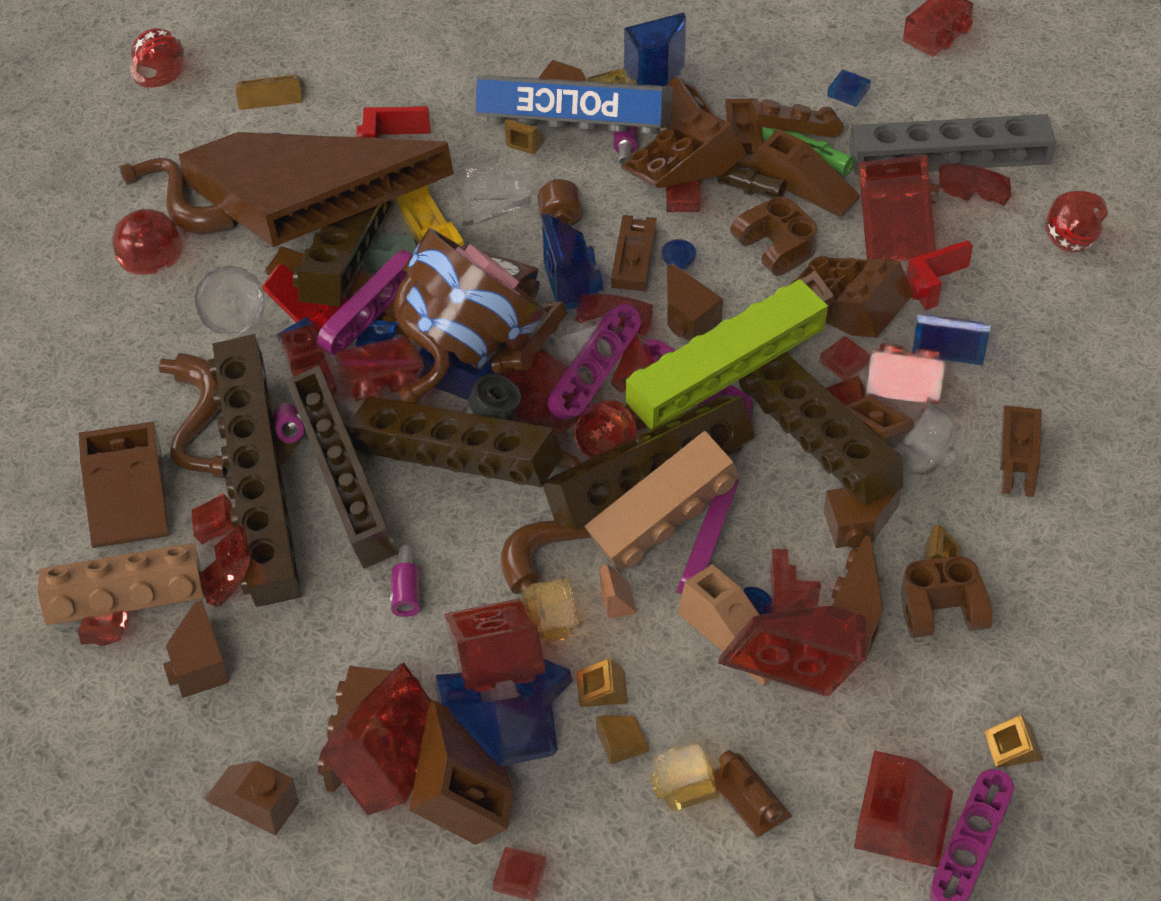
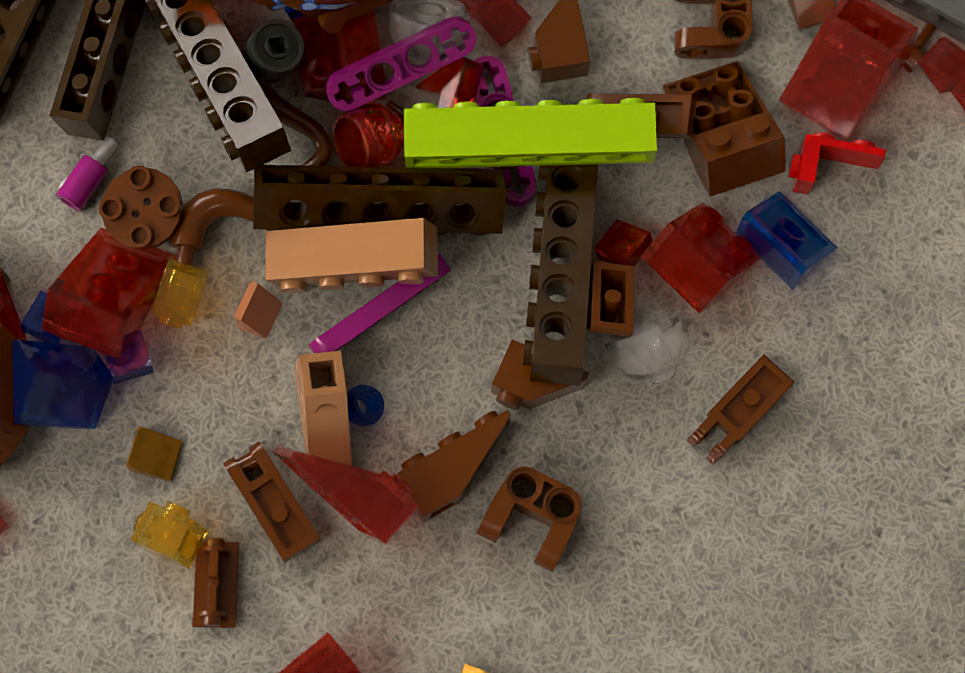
camera: 30 degrees right, 25 degrees up
(454, 568) = (128, 195): none -> reddish brown plate
(602, 684) = (179, 392): pearl gold slope -> none
(742, 710) = (273, 503): none -> reddish brown plate
(785, 590) = (393, 422): clear red slope -> none
(845, 358) = (665, 197): clear red plate -> none
(941, 544) = (576, 466): pearl gold slope -> none

